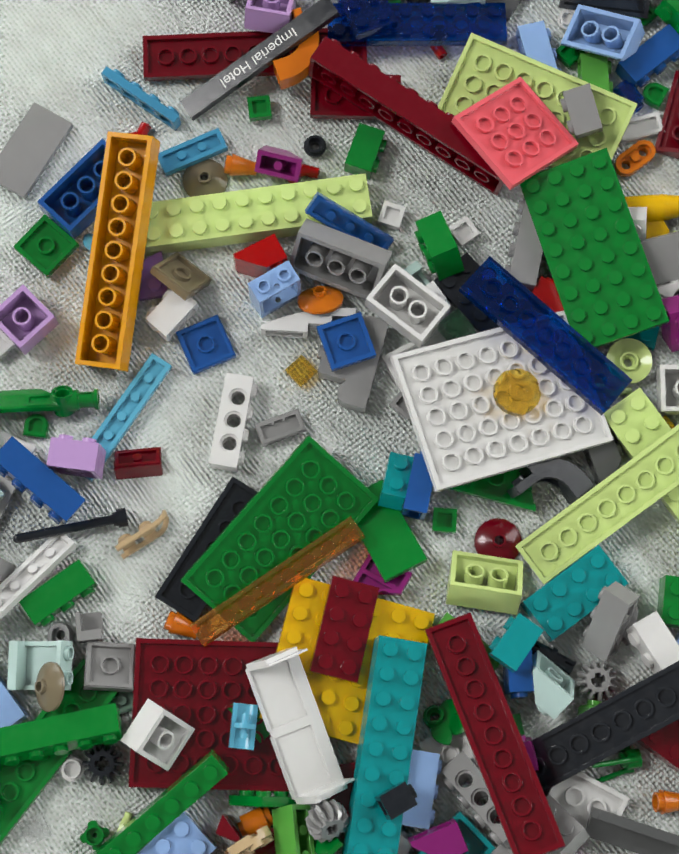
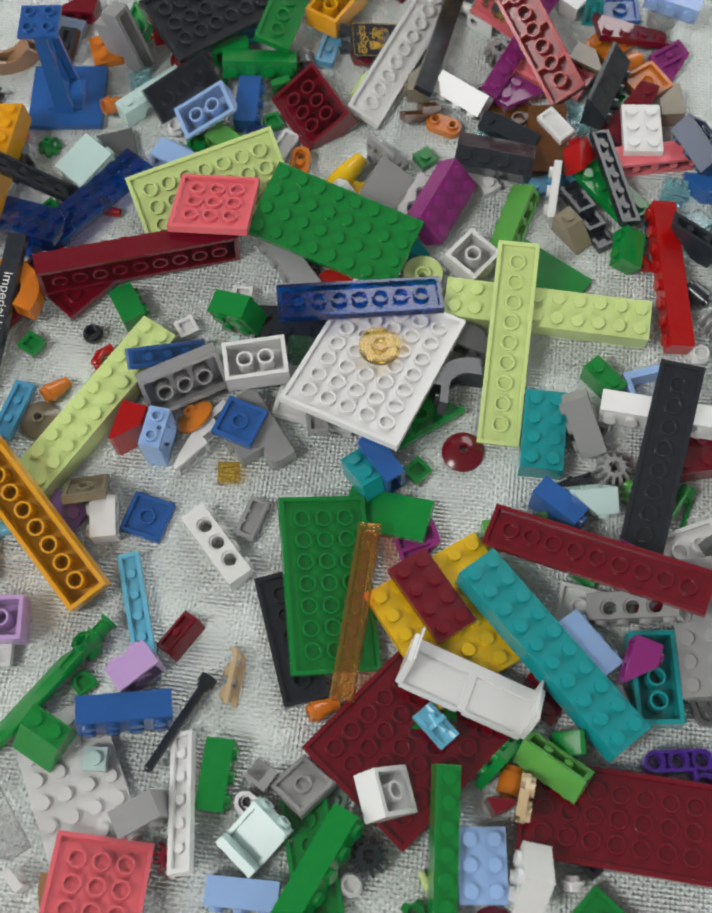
camera: 40 degrees left, 10 degrees down
(50, 686) = (278, 841): dark tan dish -> none
(278, 163) = (81, 361): magenta slope -> none
(327, 820) = (557, 724): light grey gear -> none
(397, 800) = (587, 660): black brick -> none
(446, 725) = (556, 586): green plate -> none
(485, 582) = (483, 481): yellowish green slope -> none
(515, 642) = (546, 488): teal brick -> none
(582, 111) = (242, 158): light grey brick -> none

